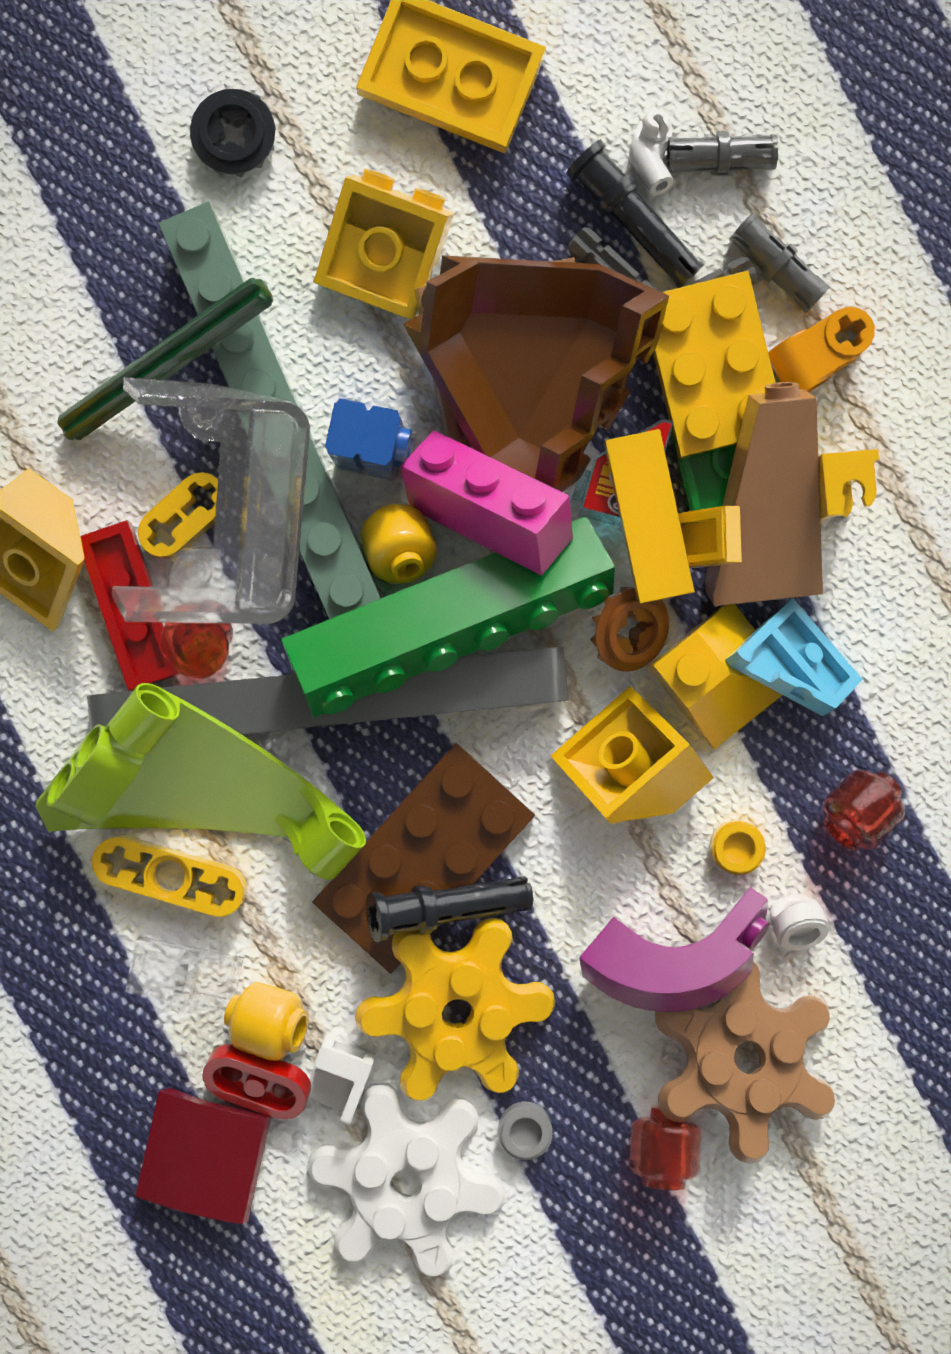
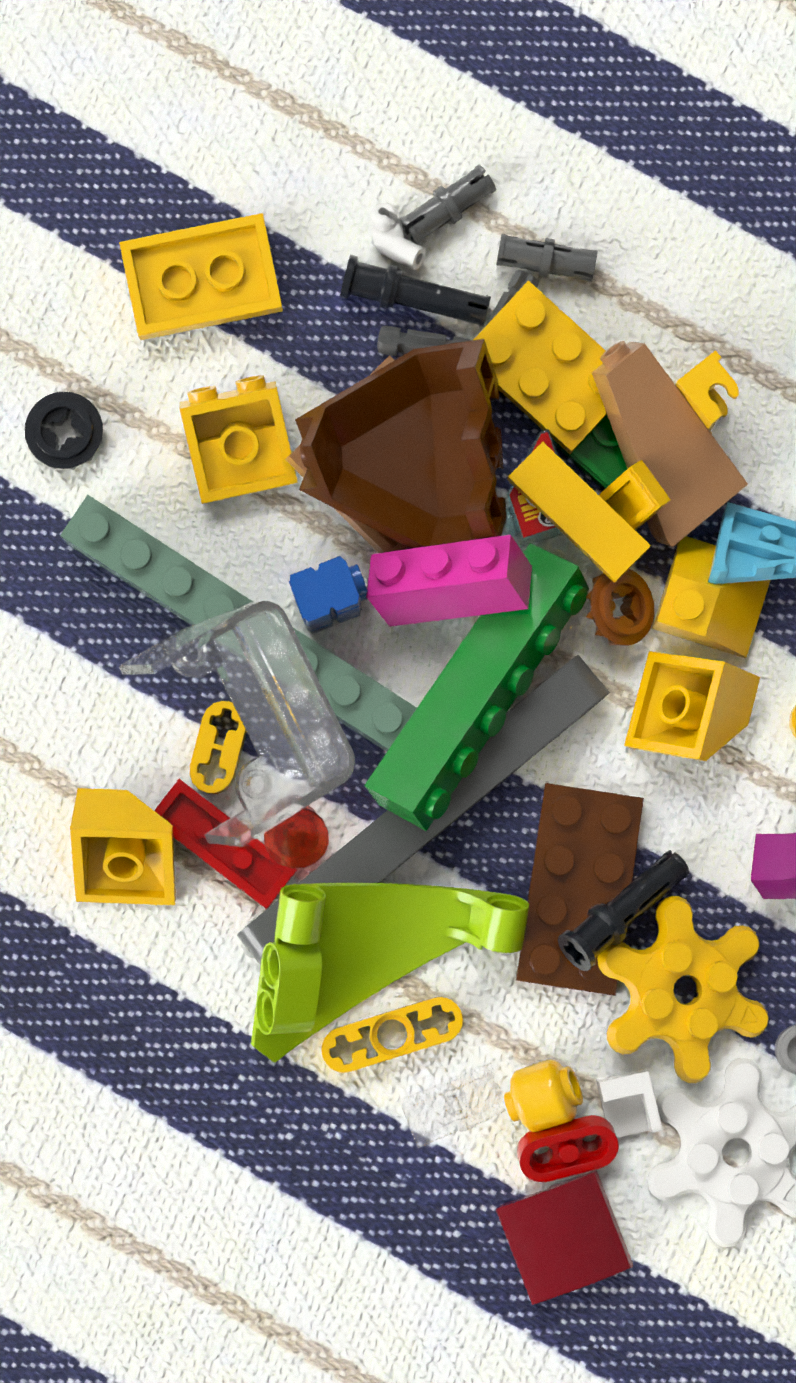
camera: 25 degrees left, 5 degrees down
(168, 356) = (132, 635): dark green axle -> none
(398, 543) = (400, 658): yellow head -> none
(816, 355) = (620, 309): light orange piece -> none

